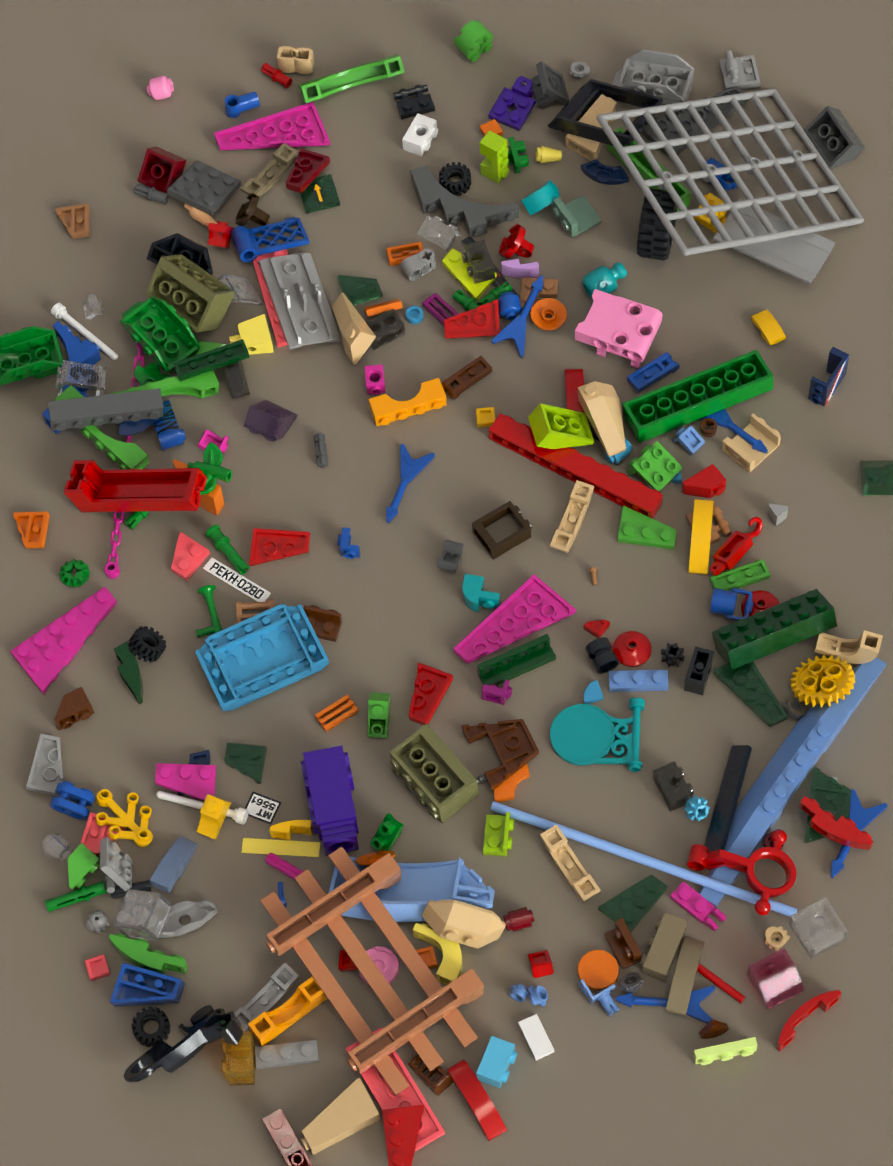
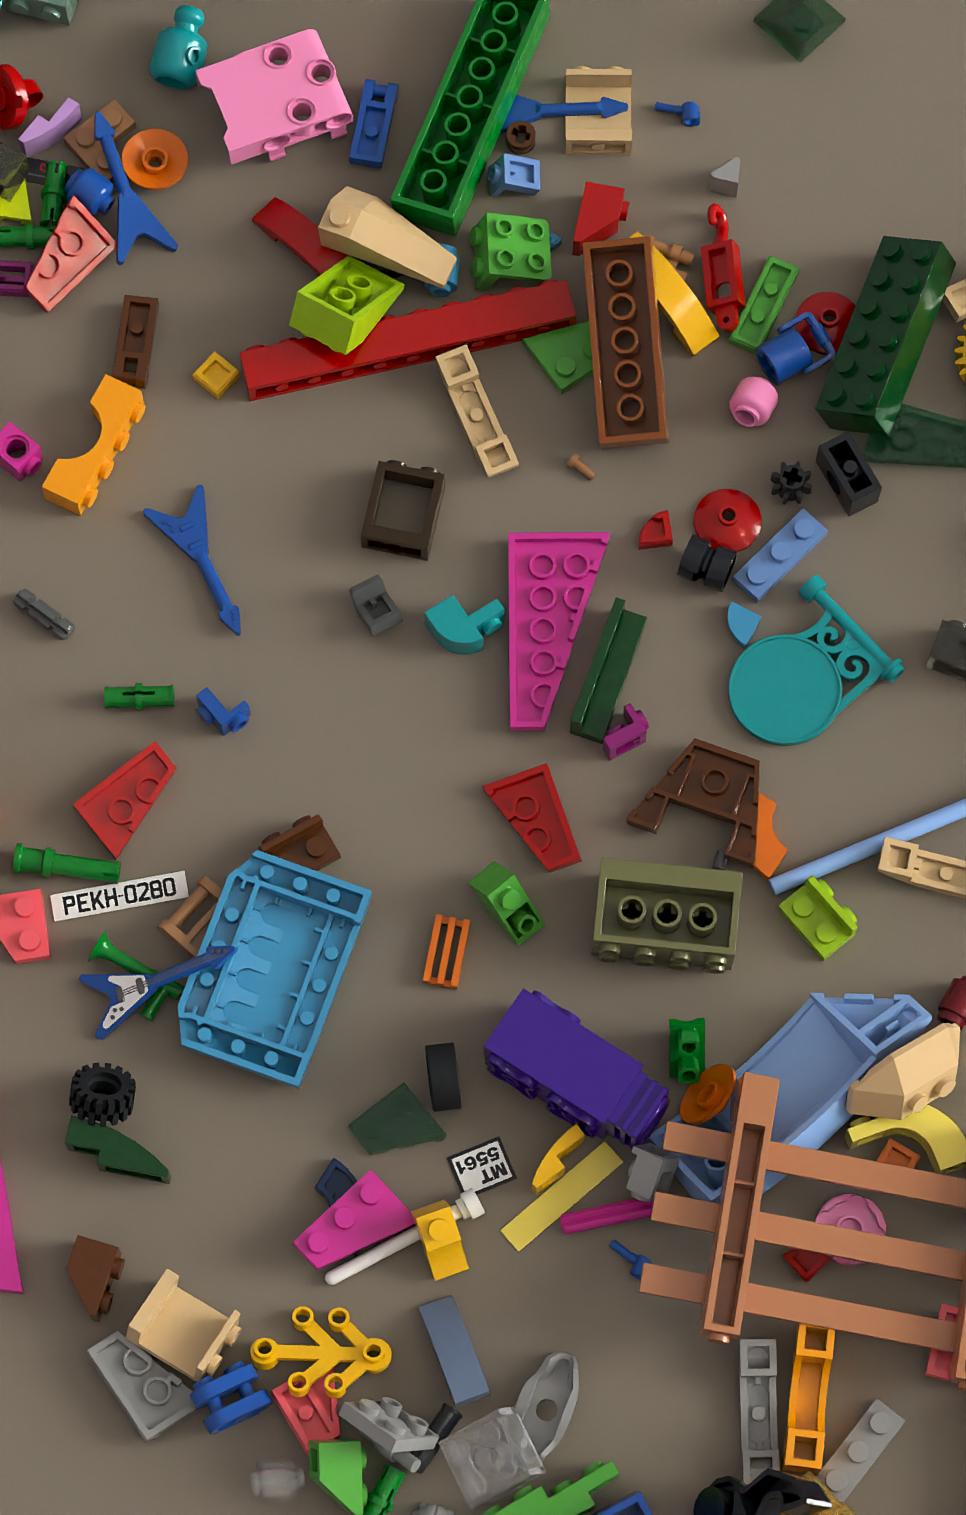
camera: 50 degrees left, 10 degrees up
(83, 757) = (182, 1329): none -> tan panel
(201, 617) = (132, 990): none -> blue piece
(280, 755) = (443, 1076): none -> black tyre
(320, 865) = (651, 1171): none -> light grey brick
(323, 511) = (139, 696): none -> green pin
(657, 537) = (625, 342): none -> dark orange brick
(691, 609) = (753, 401): none -> bright pink head
(790, 475) = (688, 110): none -> blue hand

